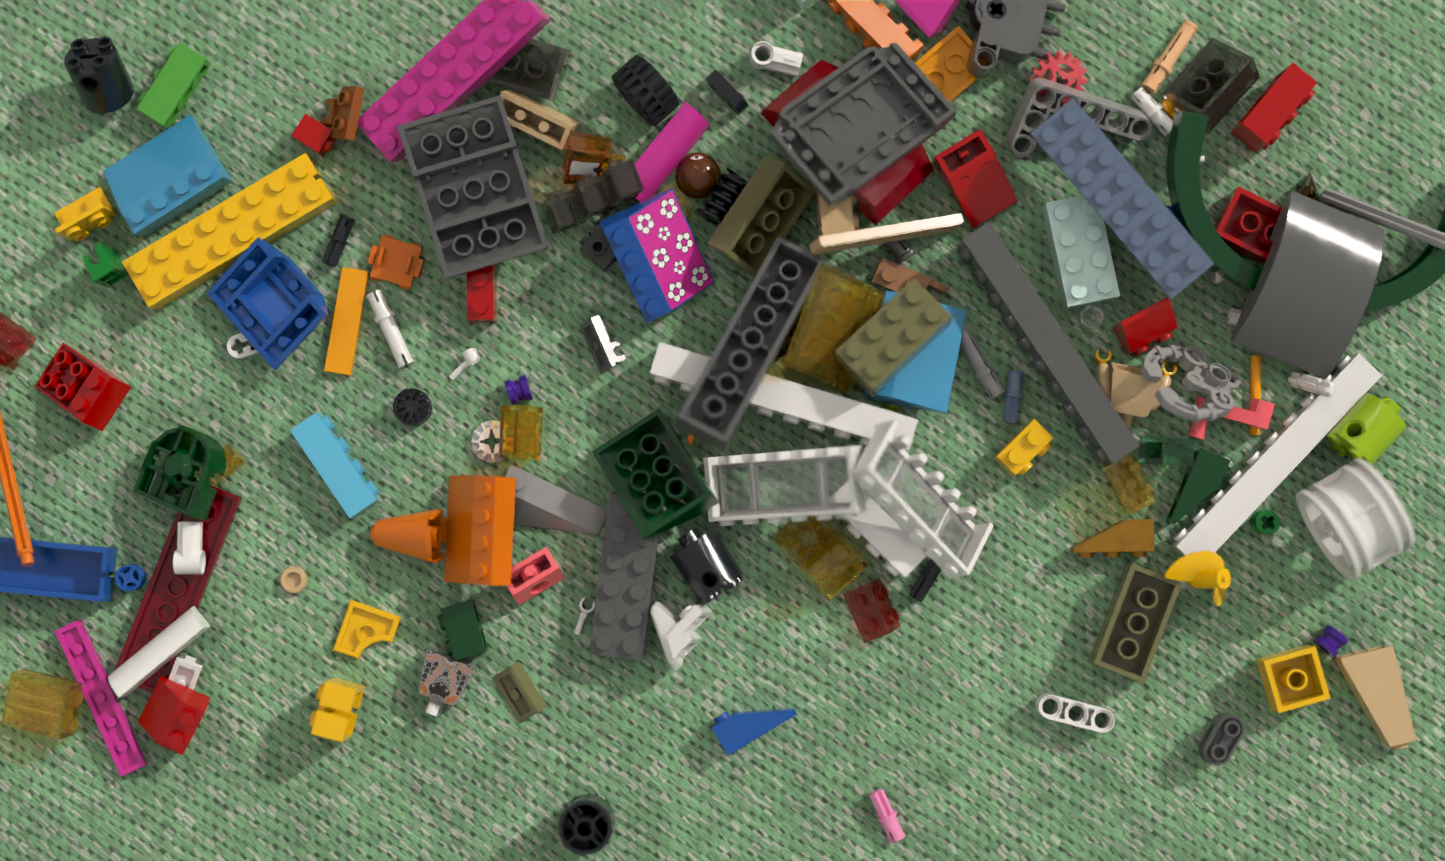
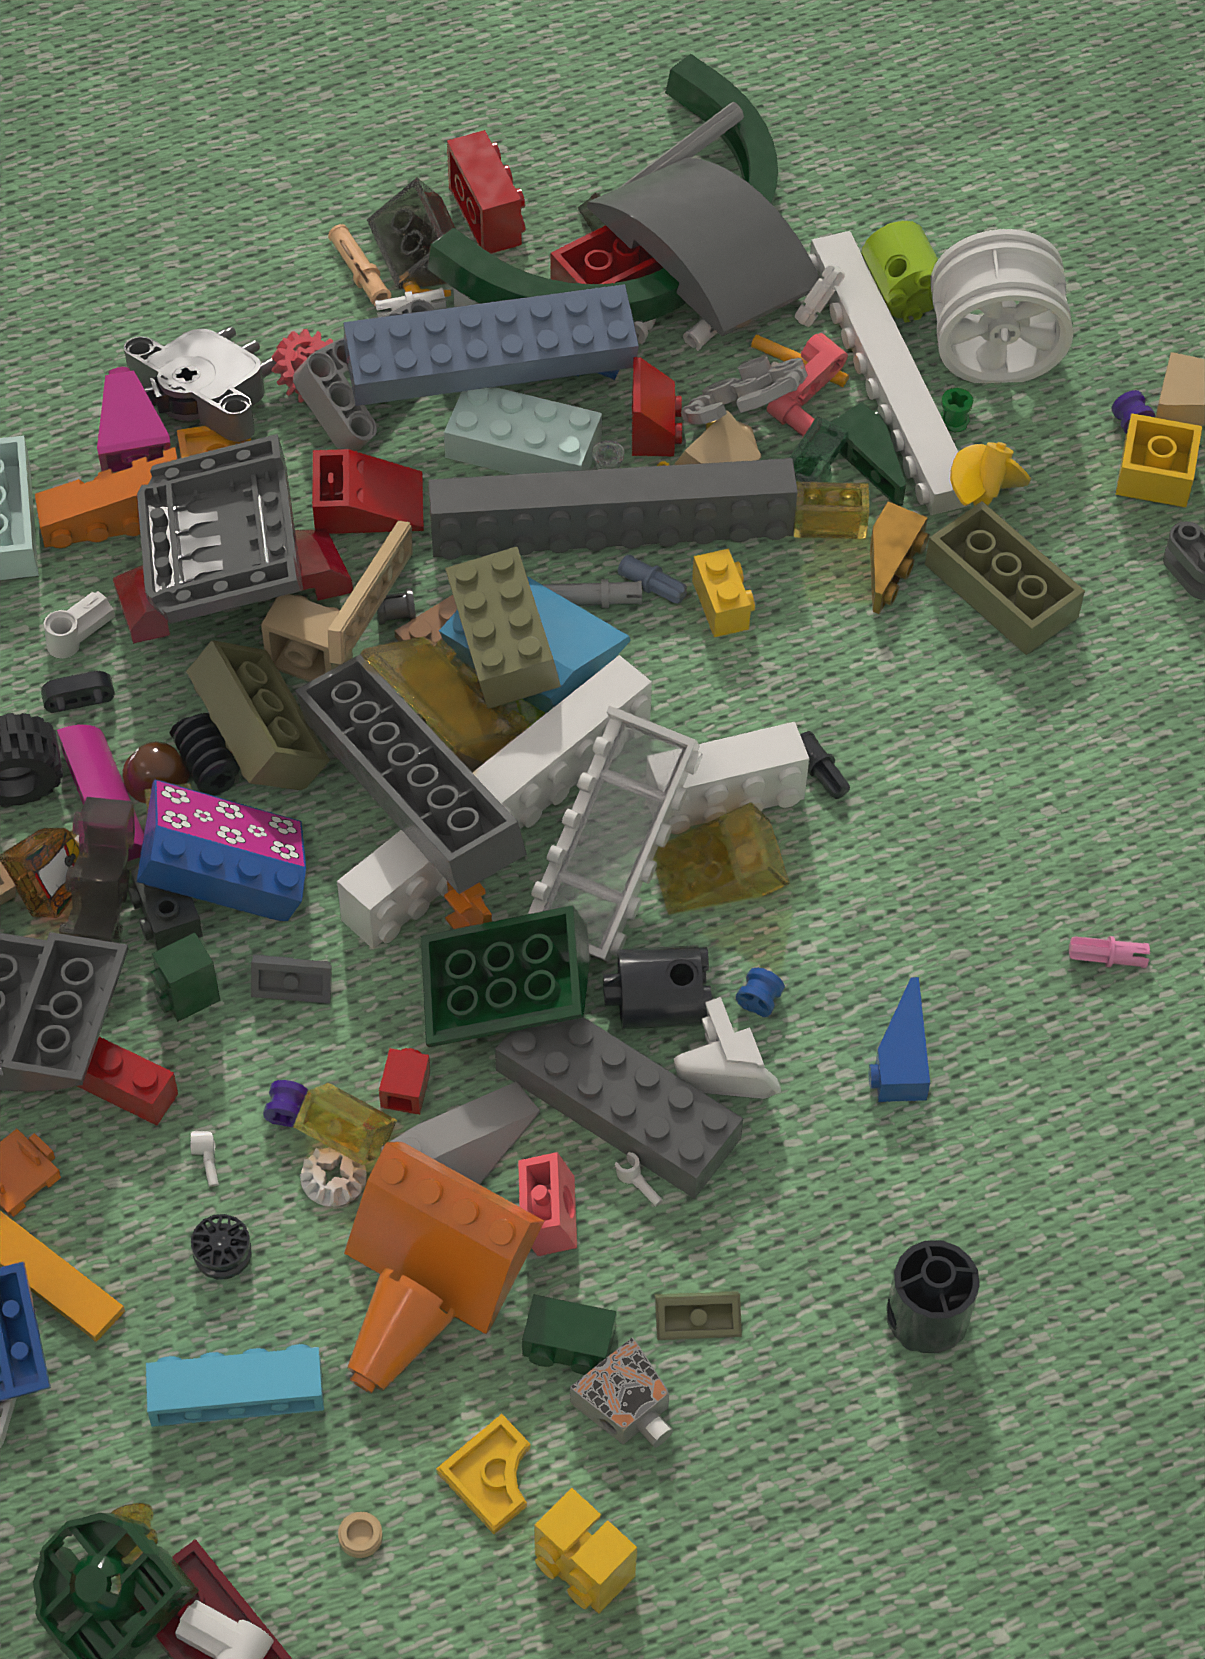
camera: 65 degrees left, 30 degrees down
(385, 318) = (87, 1222): white pin -> none
(558, 285) = (184, 978): none -> dark green brick
(570, 448) = (404, 1080): none -> red brick
(742, 622) = (760, 991): none -> blue wheel
(872, 610) = (829, 844): clear red bracket -> none
(919, 503) = (806, 700): white window -> none
(1086, 718) = (1082, 690): white beam -> none

